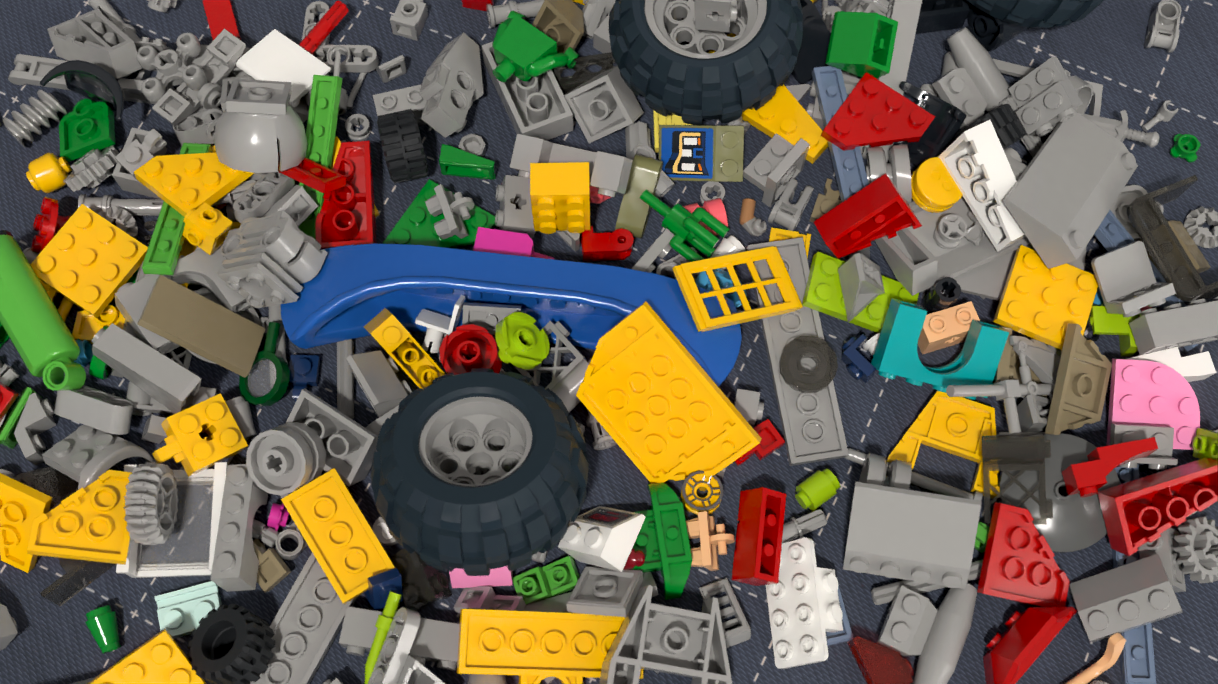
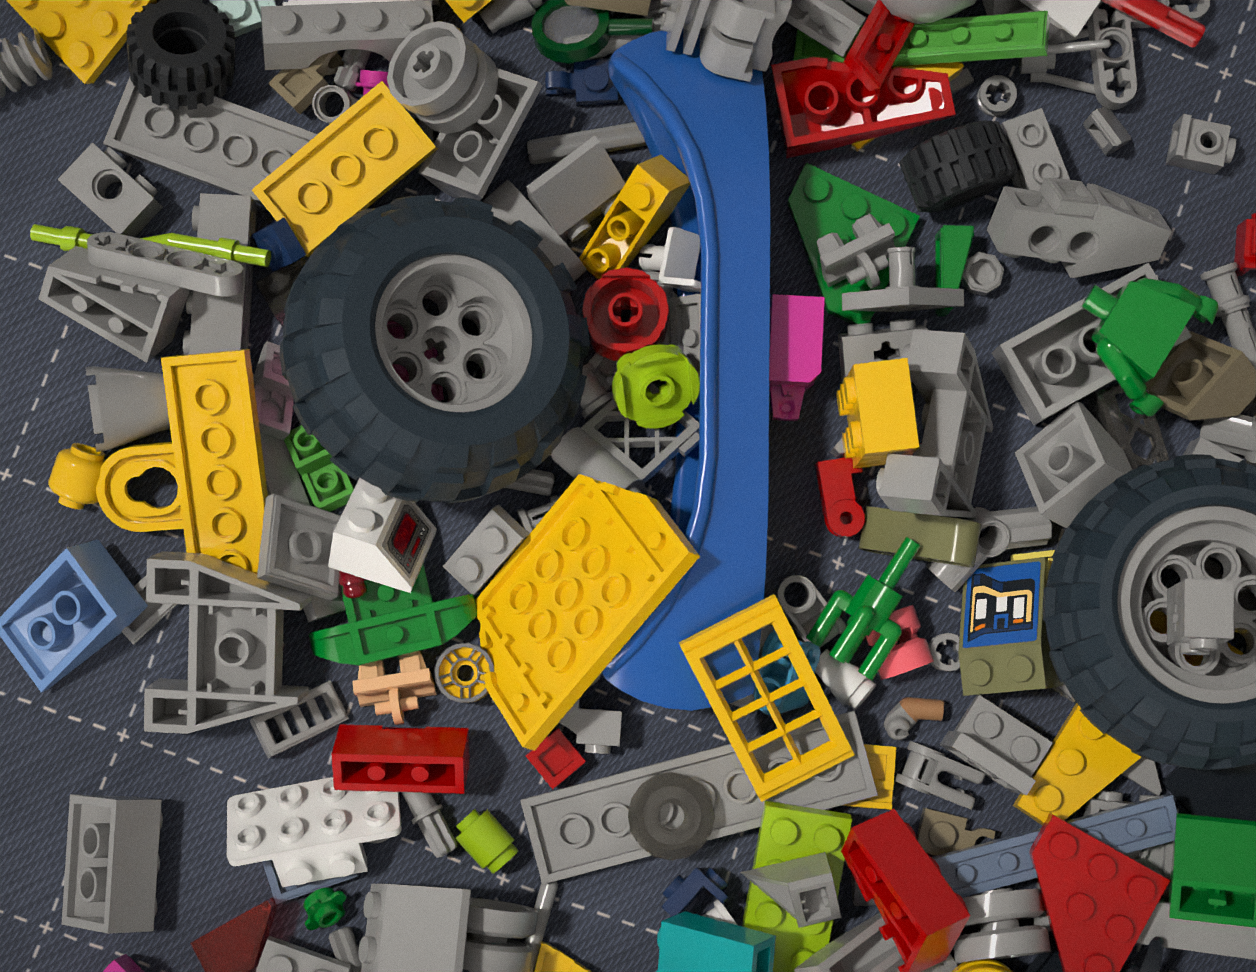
camera: 85 degrees right, 15 degrees up
(480, 185) = (902, 293): none -> light grey tile
(619, 469) = (485, 549): none -> light grey plate
(658, 248) = (807, 554): light grey plate -> none
(858, 604) = (324, 908): none -> green plate

